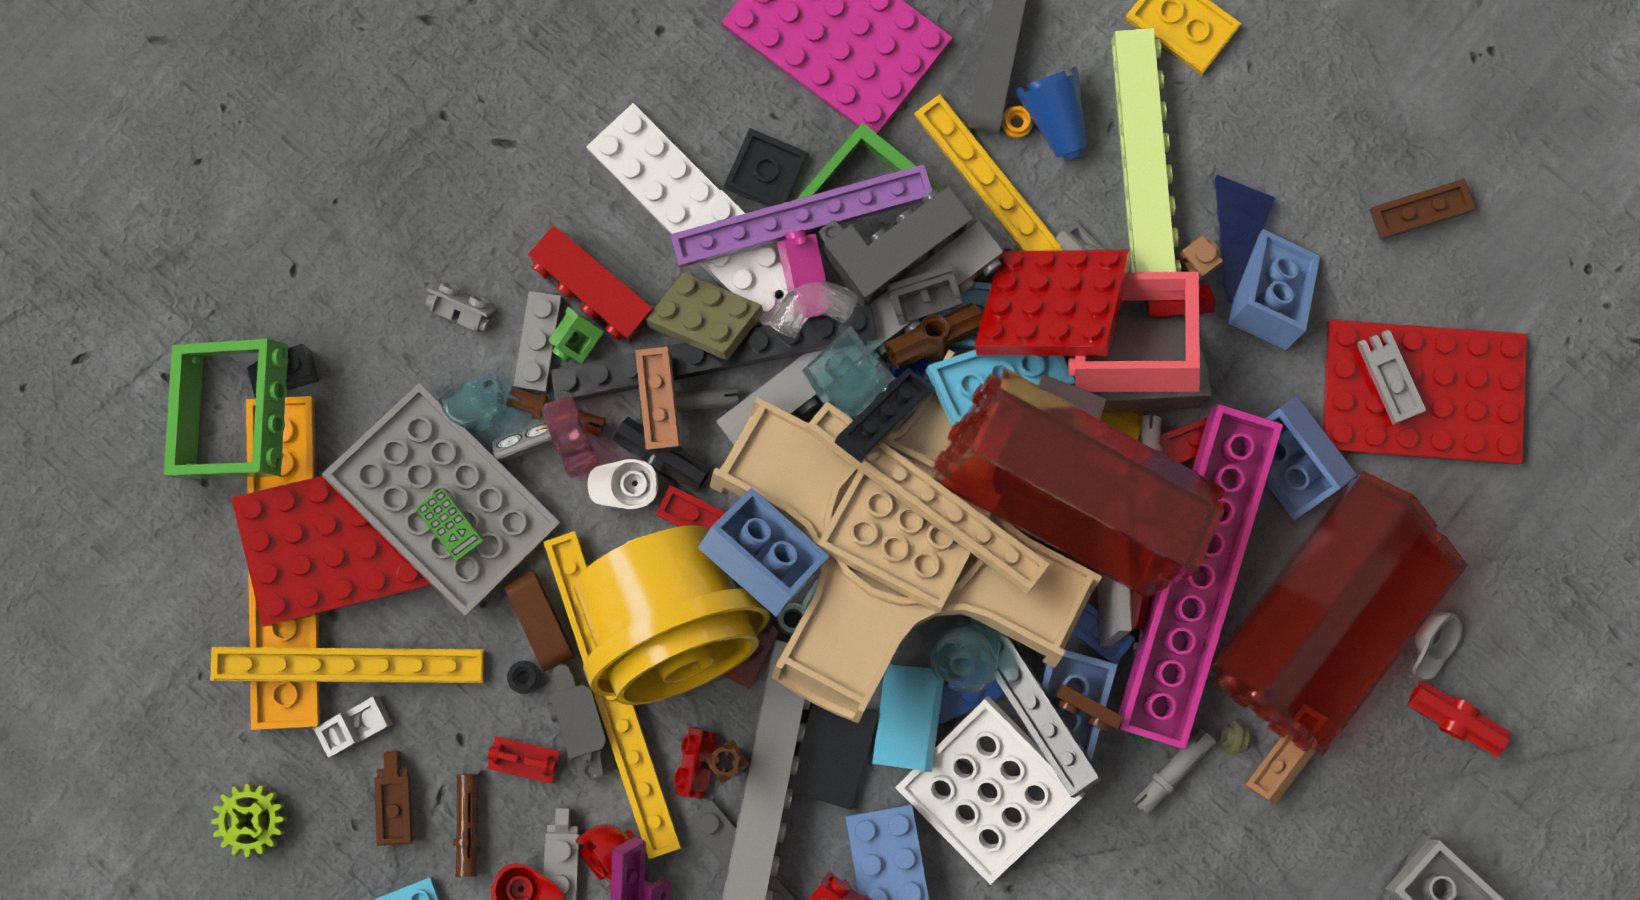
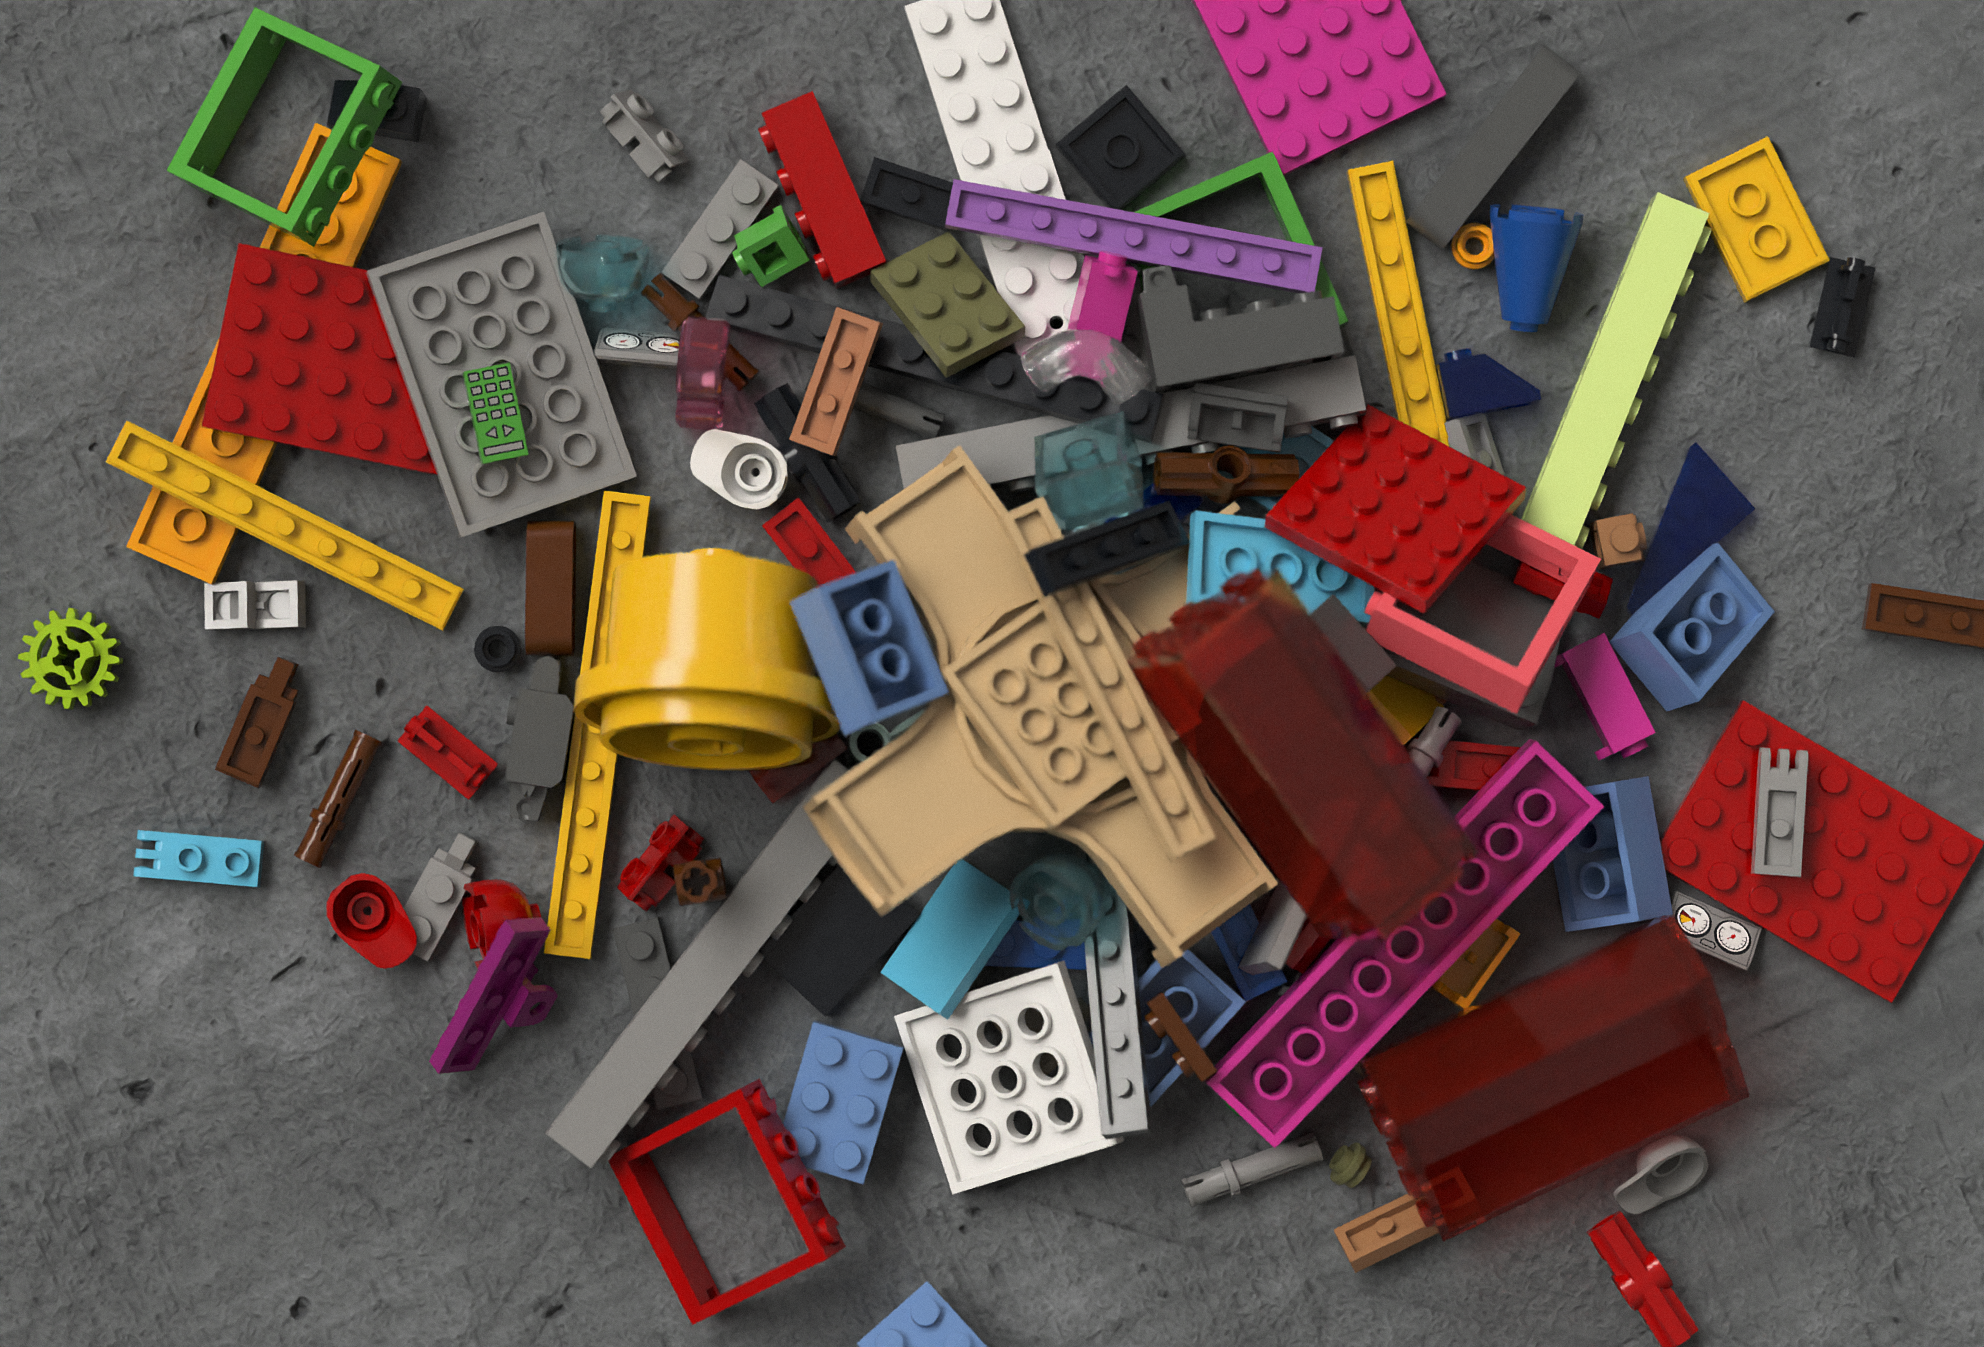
camera: 20 degrees right, 5 degrees up
(646, 261) = (907, 193): none -> black plate
(1066, 204) = (1480, 385): none -> clear blue slope
(1244, 359) = (1607, 697): none -> dark pink brick
(1251, 570) = (1475, 966): none -> light orange hinge
(1263, 47) = (1842, 306): none -> black hinge
(1396, 471) = (1716, 931): none -> slope

